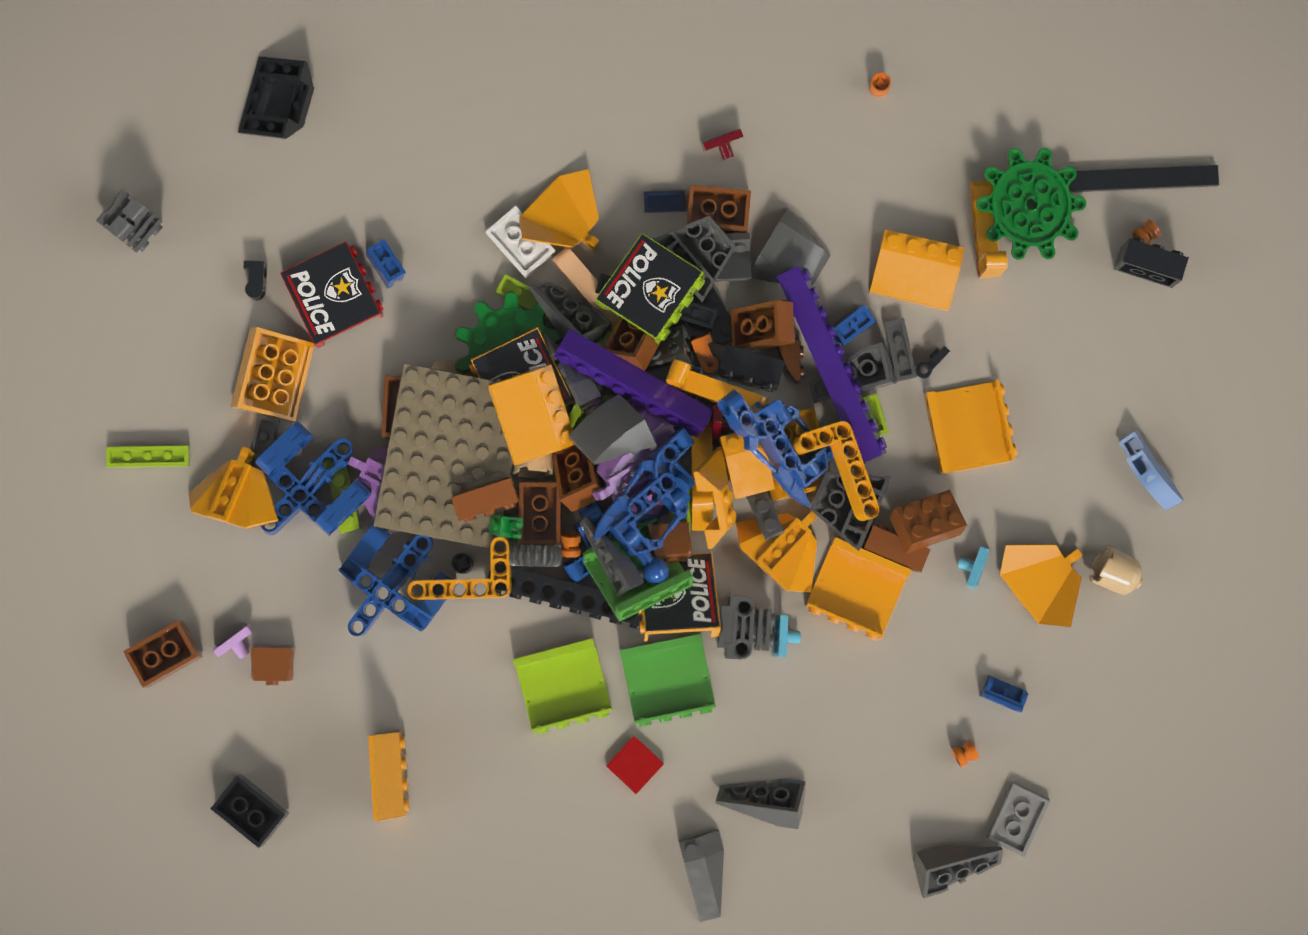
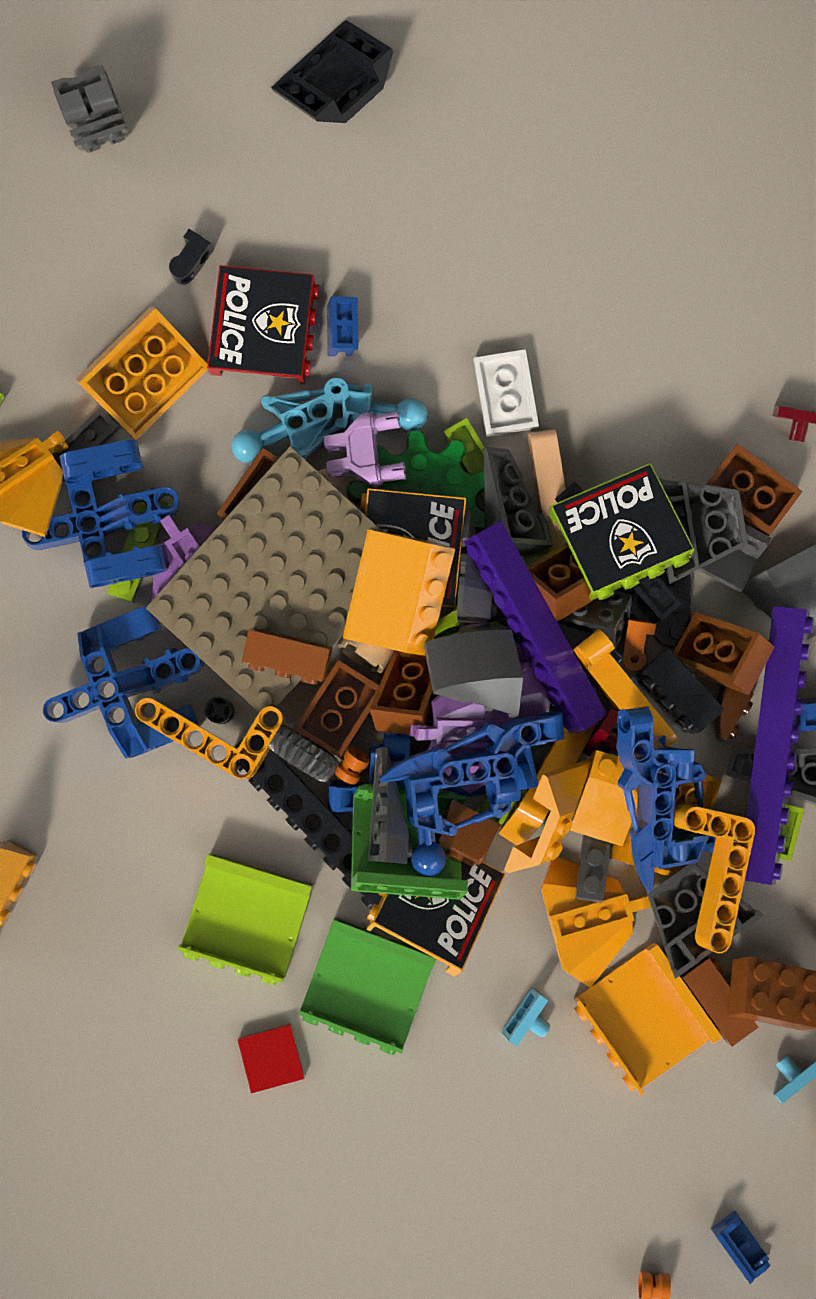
camera: 35 degrees right, 0 degrees up
(411, 344) = (311, 434): none -> medium azure piece
(451, 338) = (361, 450): none -> lavender connector
(505, 525) = (292, 699): green brick -> none
(563, 213) = (573, 389): light orange panel -> none
(664, 201) = (694, 445): dark blue tile -> none
(704, 866) = (276, 1225): dark grey wedge -> none
(744, 628) = (494, 986): dark grey piece -> none
(771, 802) = (397, 1200): dark grey wedge -> none

